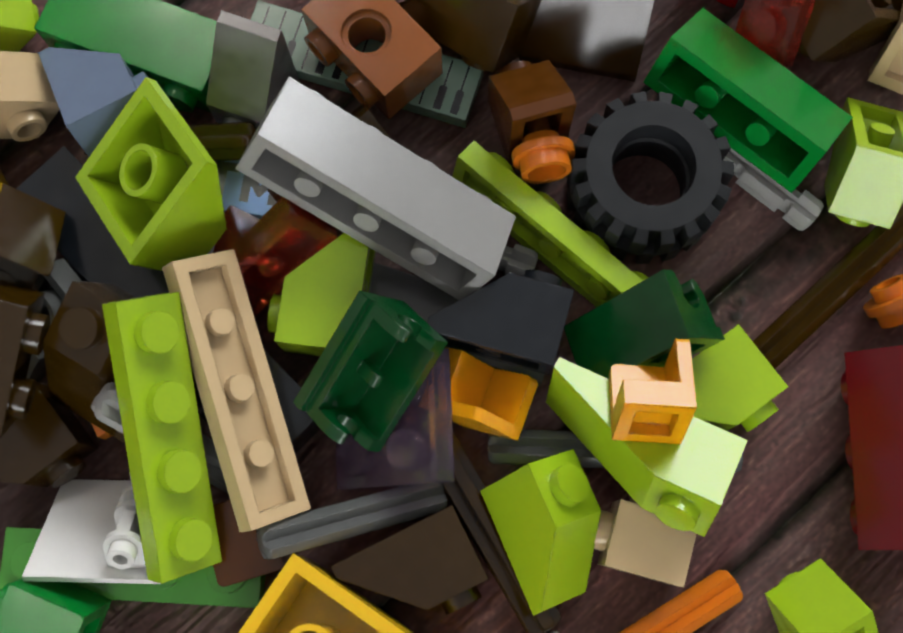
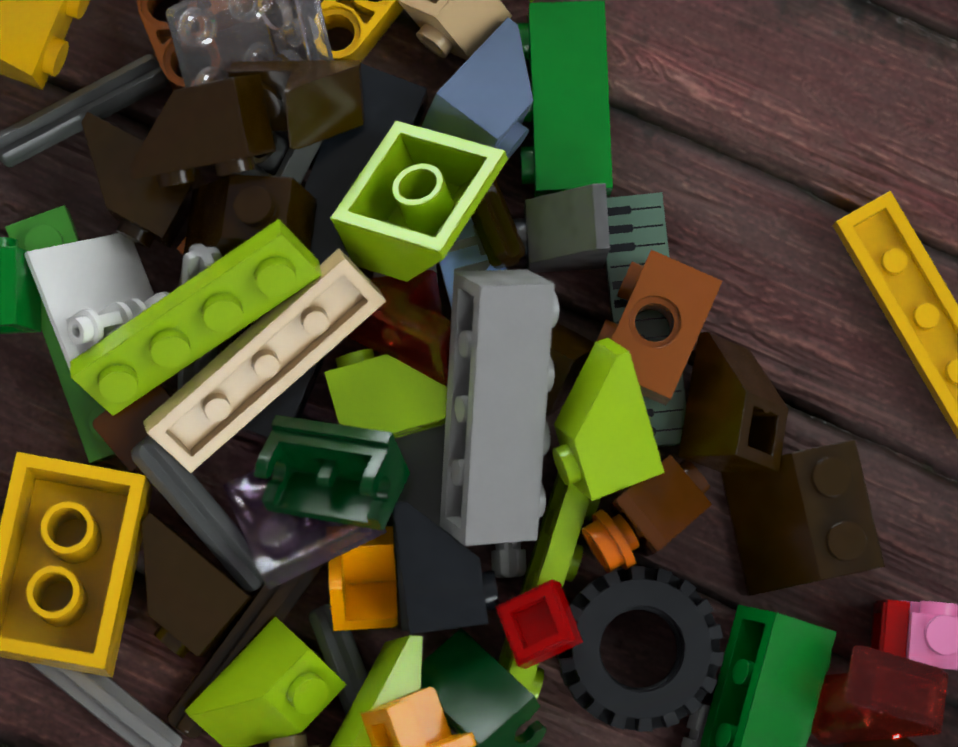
camera: 60 degrees right, 5 degrees up
(439, 103) = (605, 427): none -> lime slope
(593, 246) = (539, 624): none -> red tile

